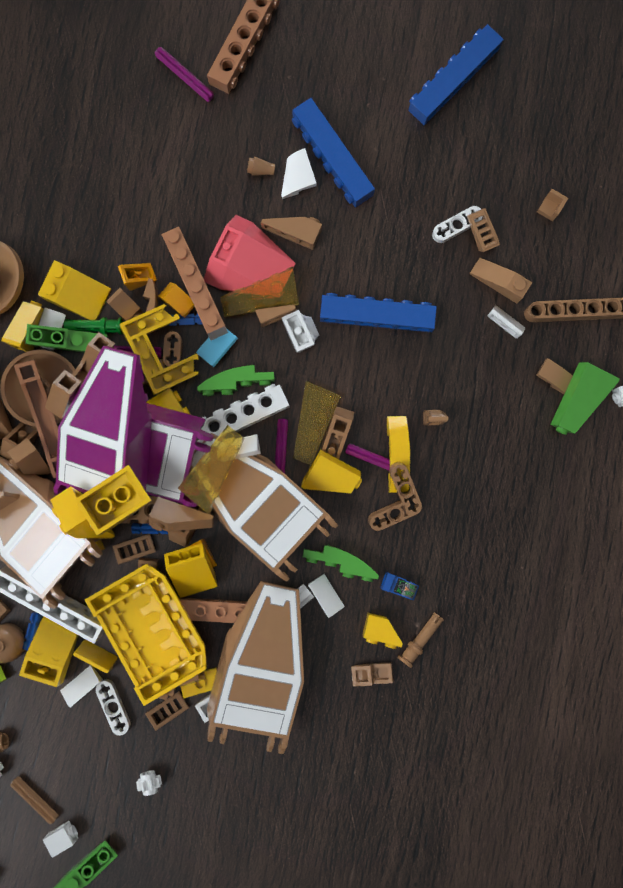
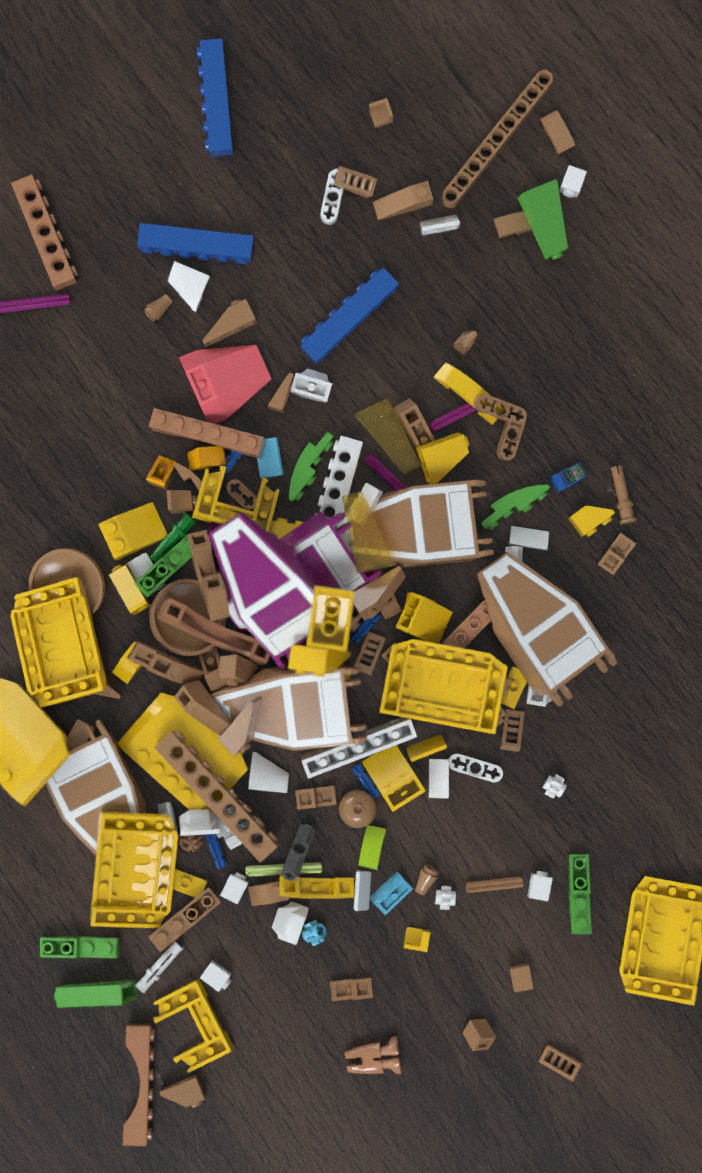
camera: 45 degrees left, 0 degrees up
(268, 293) = (264, 383): clear yellow wing -> none

